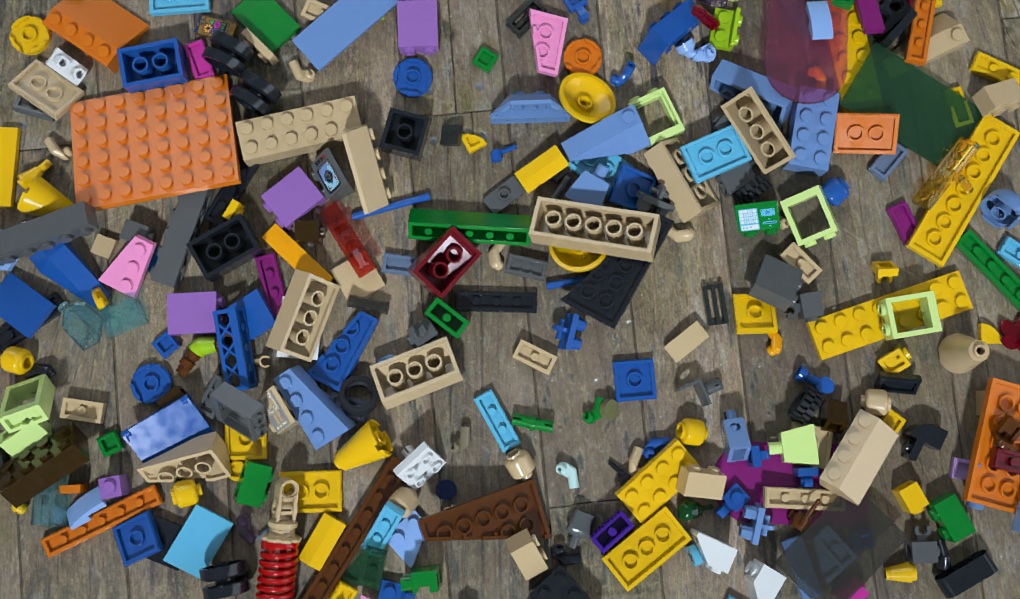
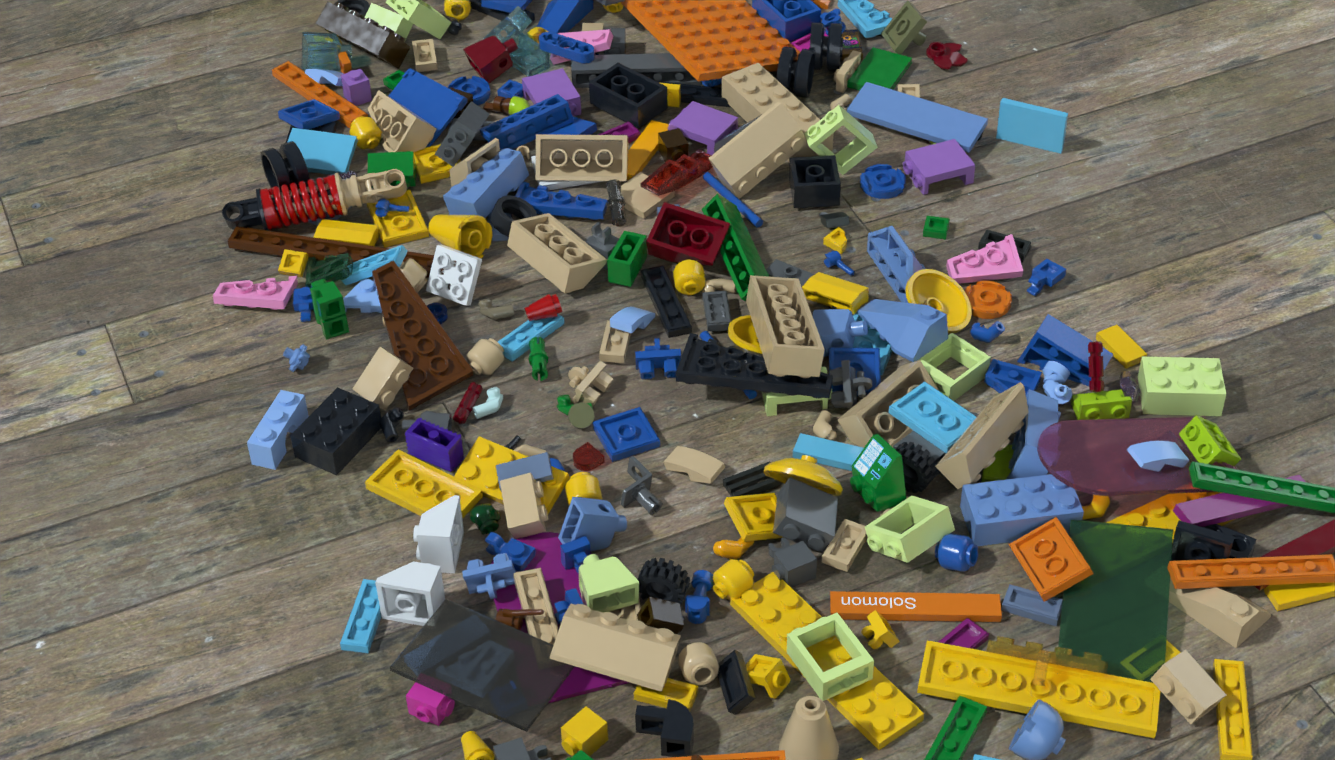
camera: 75 degrees right, 40 degrees down
(117, 352) = (490, 57): none -> dark red torso
(133, 296) = (577, 50): none -> blue beam
(187, 33) = (832, 17): none -> blue brick
(303, 502) = (384, 206): none -> blue hand
(376, 93) = (850, 154): none -> yellowish green window
(484, 276) = (689, 277): none -> yellow head
(484, 403) = (544, 308): none -> red cone
(515, 336) = (631, 318): none -> light blue slope
(562, 491) = (467, 403): none -> dark red axle
(575, 394) = (585, 383): none -> tan hips
(650, 417) = (587, 457): none -> clear red tile
(670, 472) = (538, 465): none -> sand blue tile
(683, 79) = (1005, 375): none -> blue wing
(706, 236) = (827, 451): none -> medium azure tile
(749, 273) = (805, 471): none -> yellow dish
(811, 353) = (733, 579): none -> yellow head
(865, 238) = (917, 606): none -> orange tile

